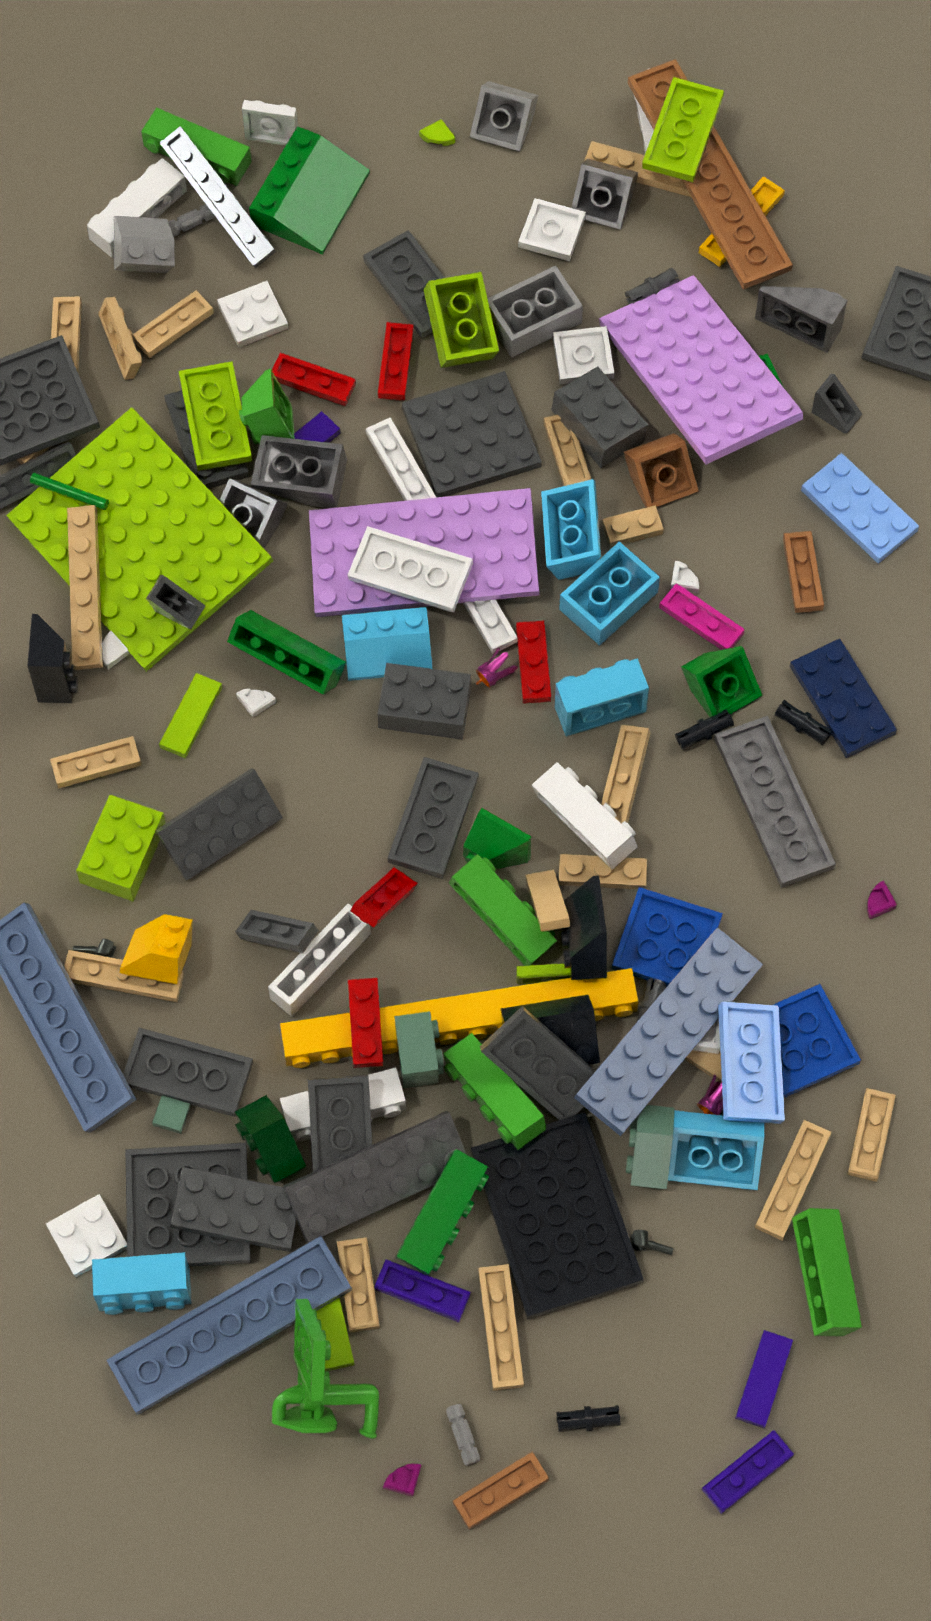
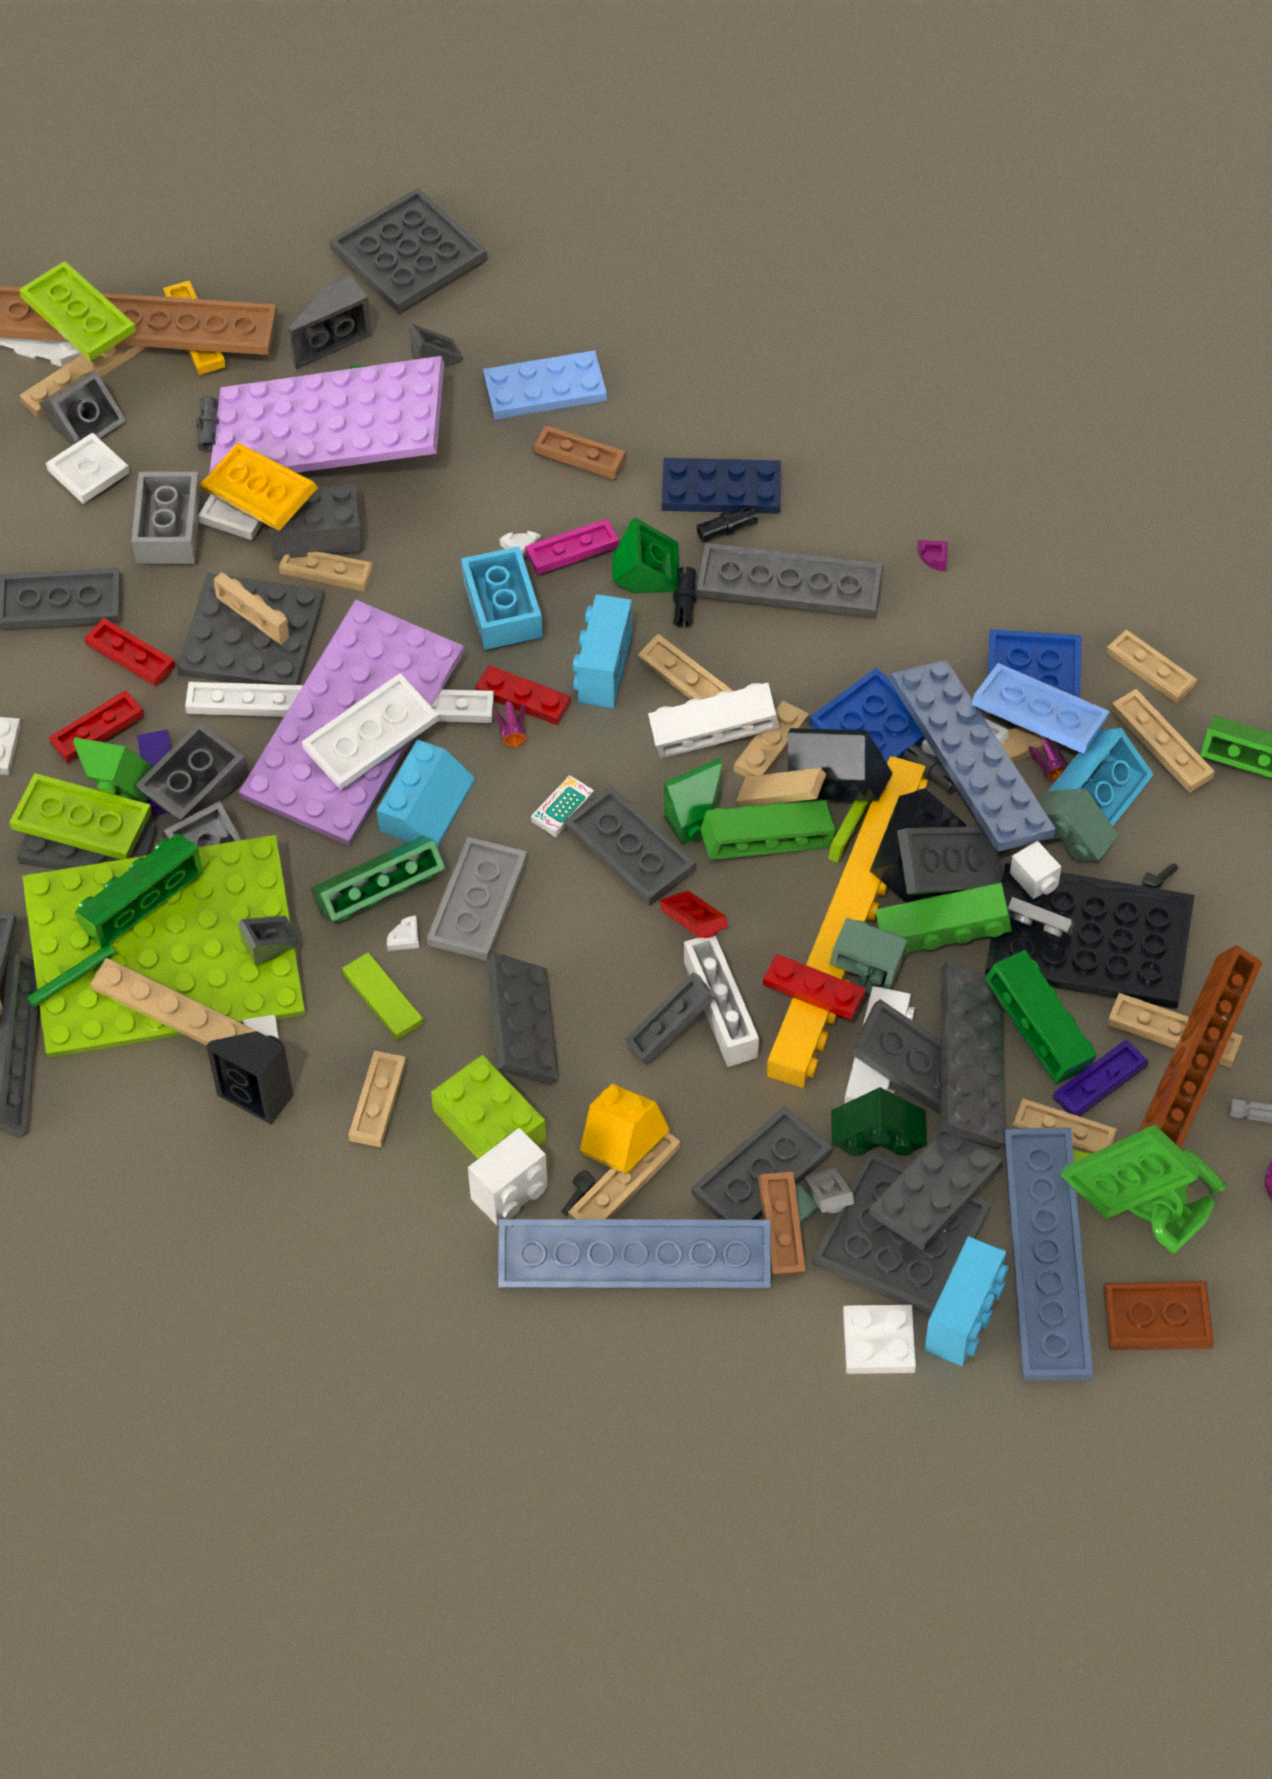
camera: 60 degrees left, 10 degrees down
(68, 890) = (508, 1176): none -> white brick
(139, 1113) = (781, 1208): none -> medium nougat plate
(155, 491) = (140, 890): none -> green slope
(189, 1130) = (829, 1191): none -> light grey plate
(224, 1440) = (1158, 1315): none -> dark orange tile
(316, 733) = (477, 898): none -> light grey plate
(424, 701) = (506, 793): dark grey brick -> none
(443, 748) = (561, 805): none -> tile
(456, 1354) = (1202, 1044): none -> dark orange brick
(461, 319) = (135, 571): lime brick -> none
(480, 421) = (251, 608): none -> tan plate
(539, 1175) = (1027, 913): none -> light grey plate
(571, 528) = (419, 589): medium azure slope -> none
(582, 1139) = (1035, 870): none -> white brick
(595, 357) = (258, 486): none -> yellow tile
(632, 526) = (440, 555): tan plate -> none
(661, 470) = (402, 503): medium nougat slope -> none

